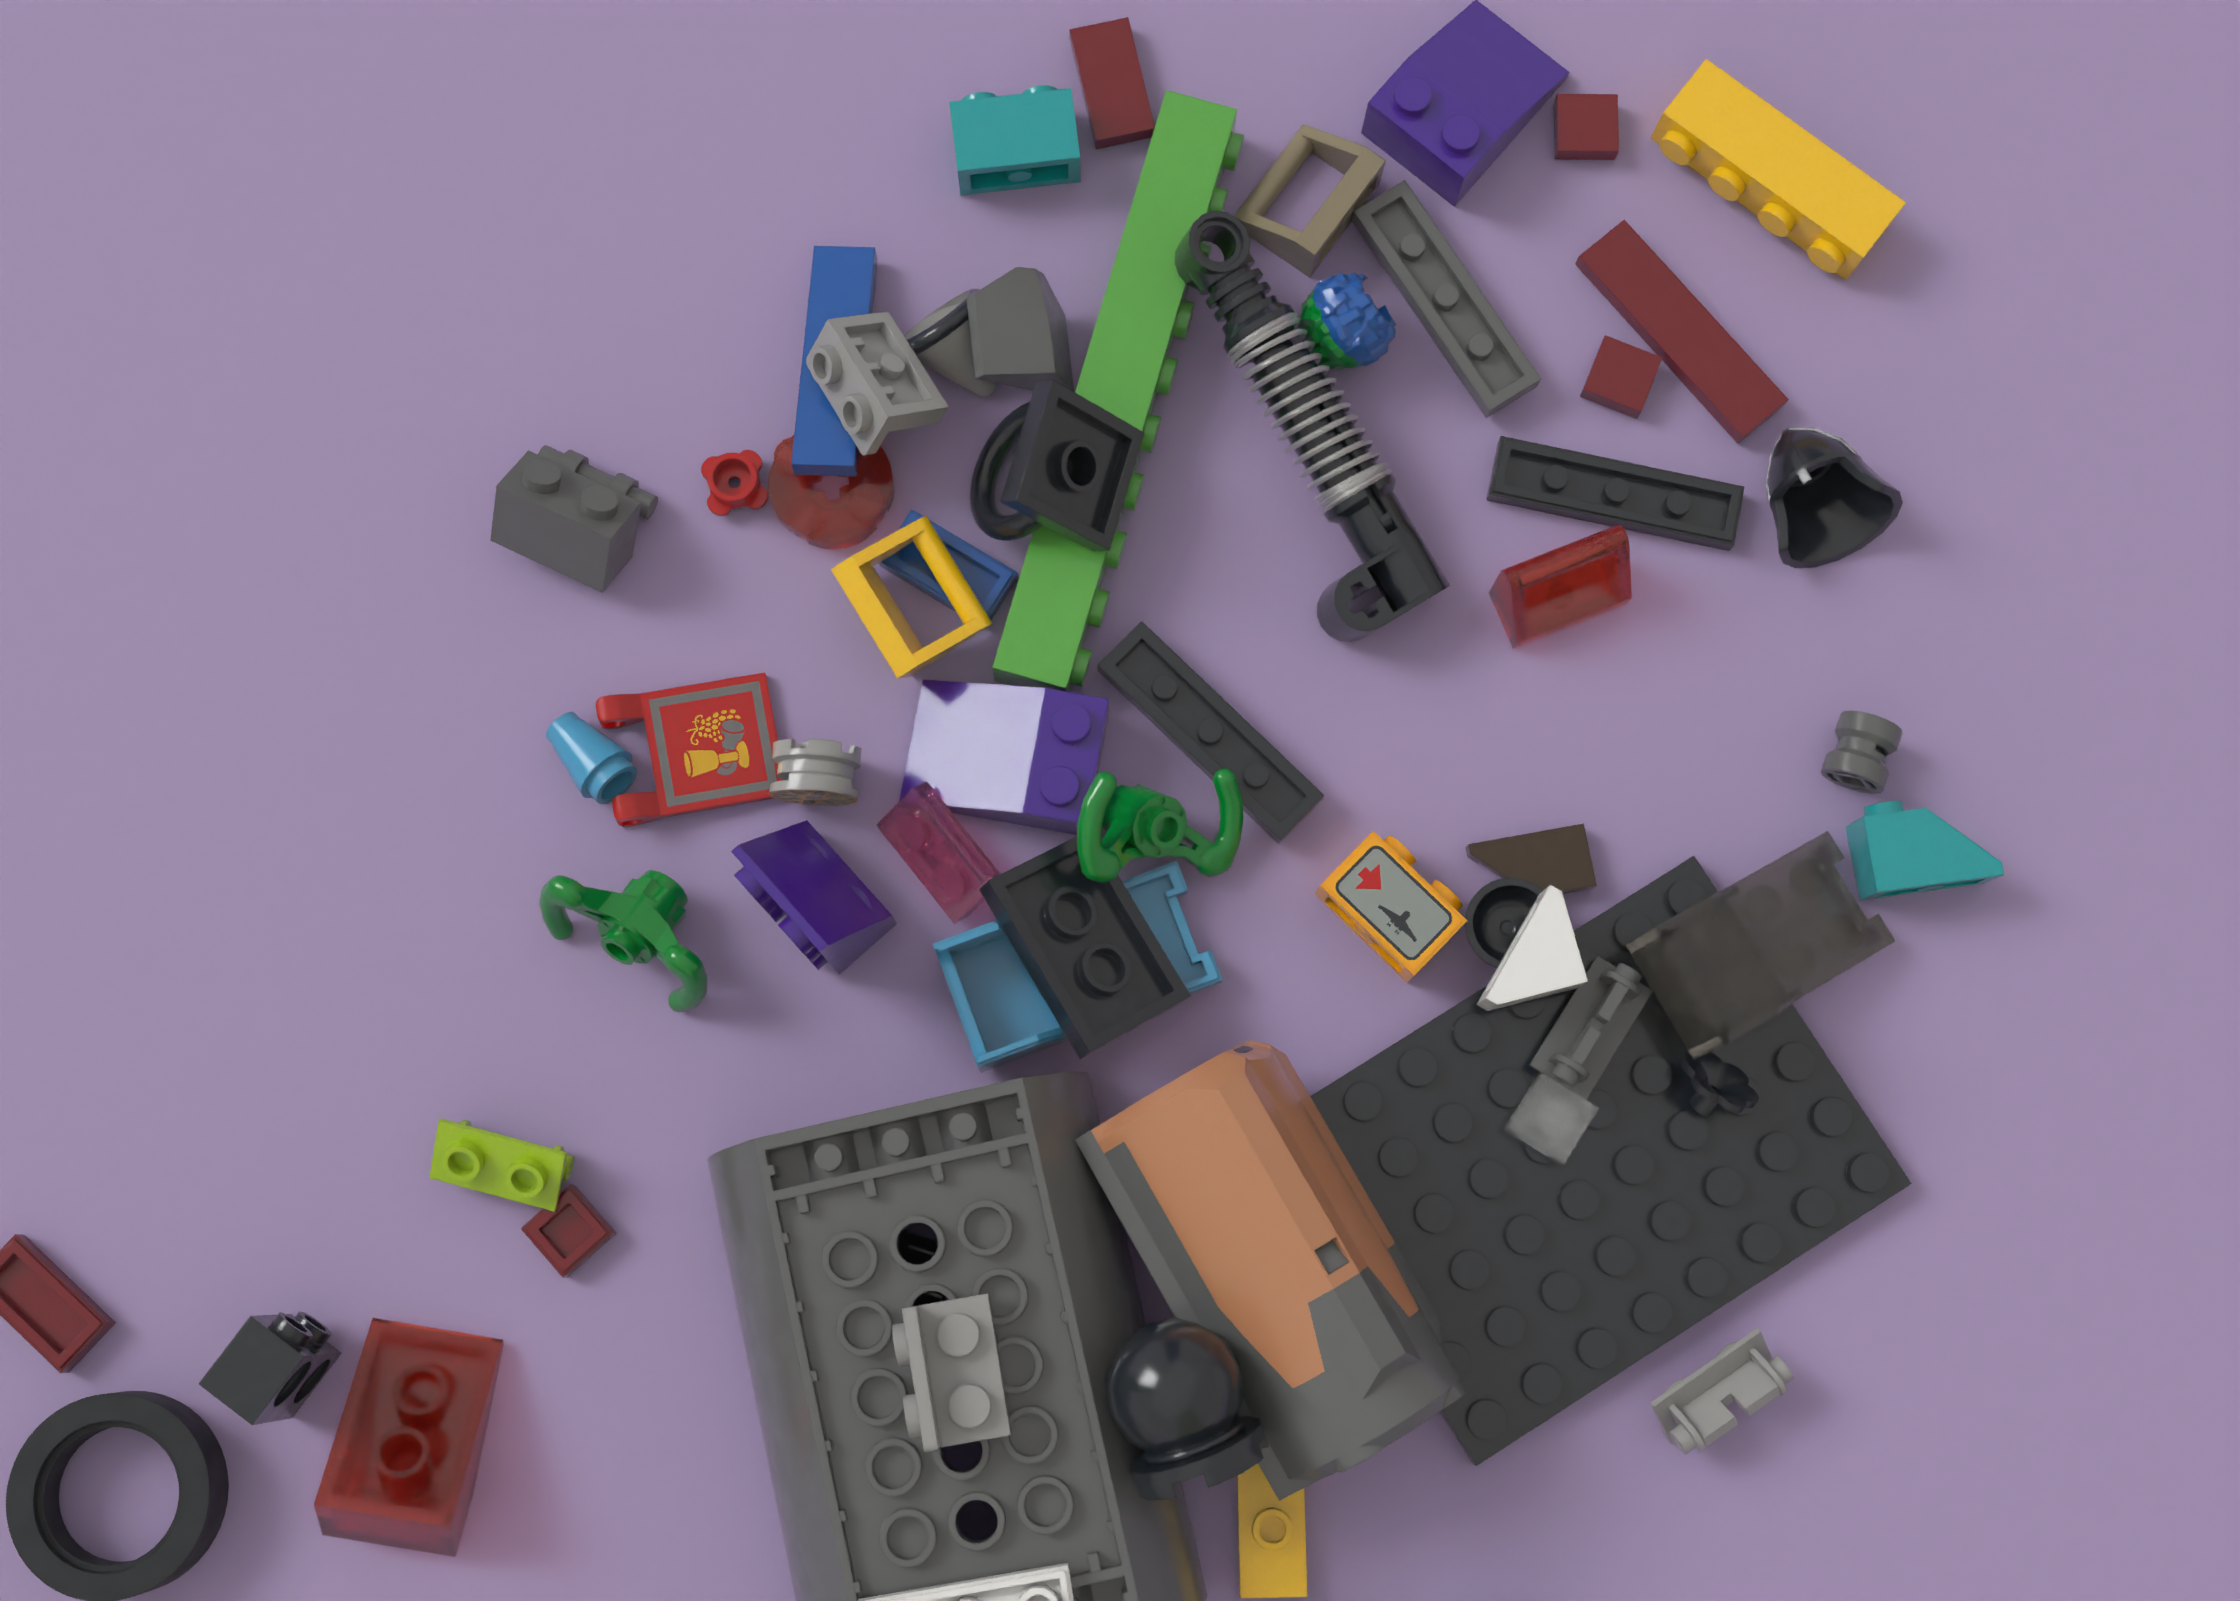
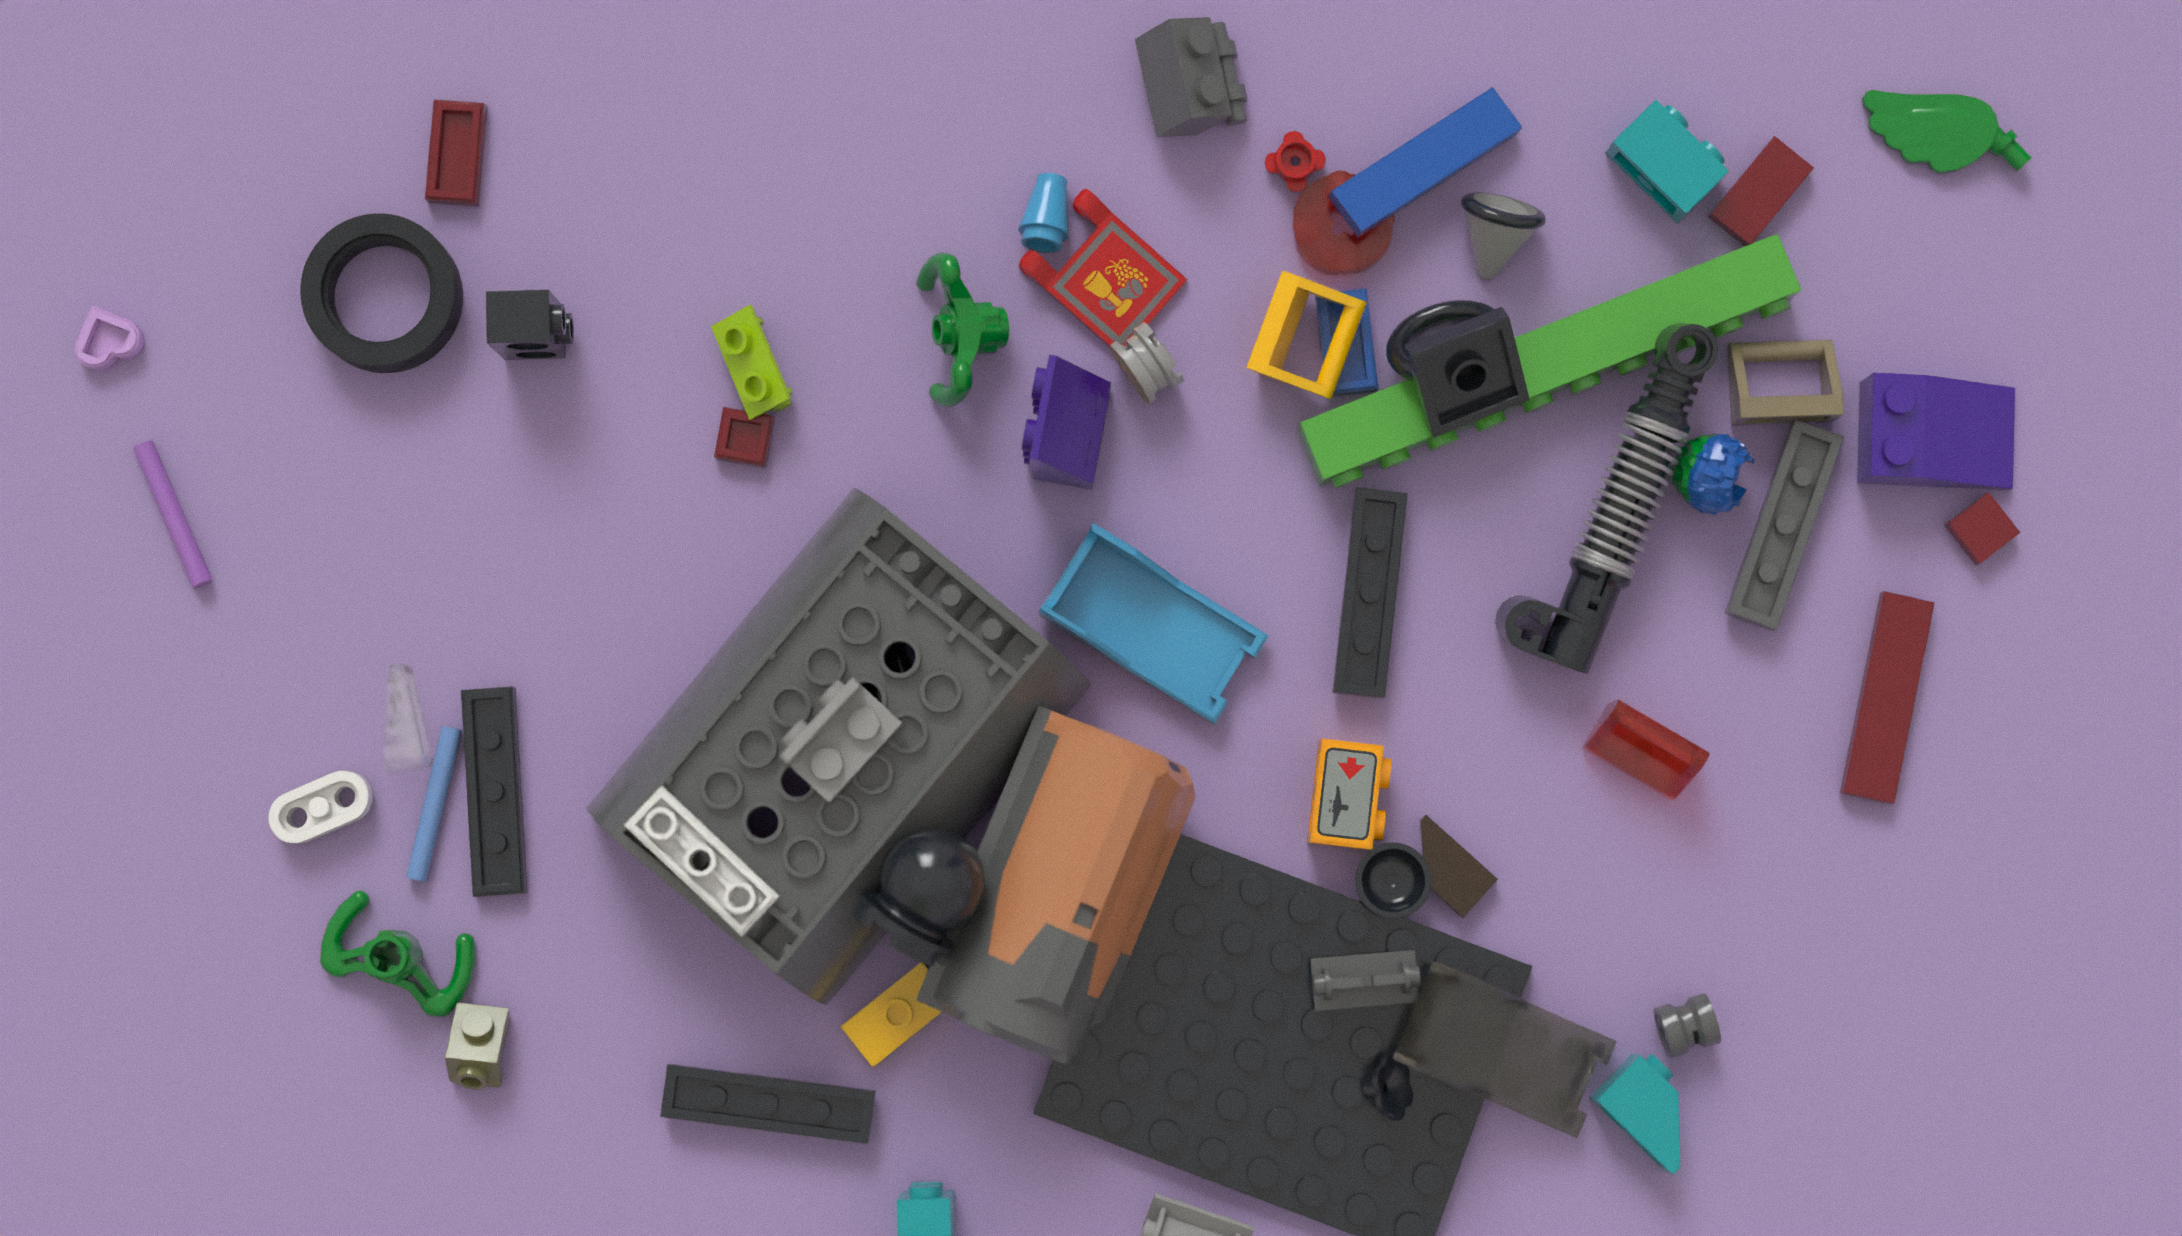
camera: 55 degrees right, 5 degrees up
(410, 1438) = (549, 442): clear red slope -> none
(873, 379) = (1428, 199): light grey bracket -> none
(938, 851) = (1157, 482): clear pink plate -> none
(1007, 751) = (1253, 474): slope -> none
(1019, 332) = (1535, 268): dark grey slope -> none
(1084, 948) = (1168, 617): black plate -> none
(1153, 825) = (1278, 603): green piece -> none
(1540, 958) = (1380, 913): white slope -> none
(1551, 1118) = (1287, 998): clear plate -> none
(1615, 493) = (1739, 737): black tile -> none
(1621, 377) = (1823, 681): dark red tile -> none
(1775, 170) = (2048, 678): yellow brick -> none
(1825, 498) = (1840, 875): black helmet -> none

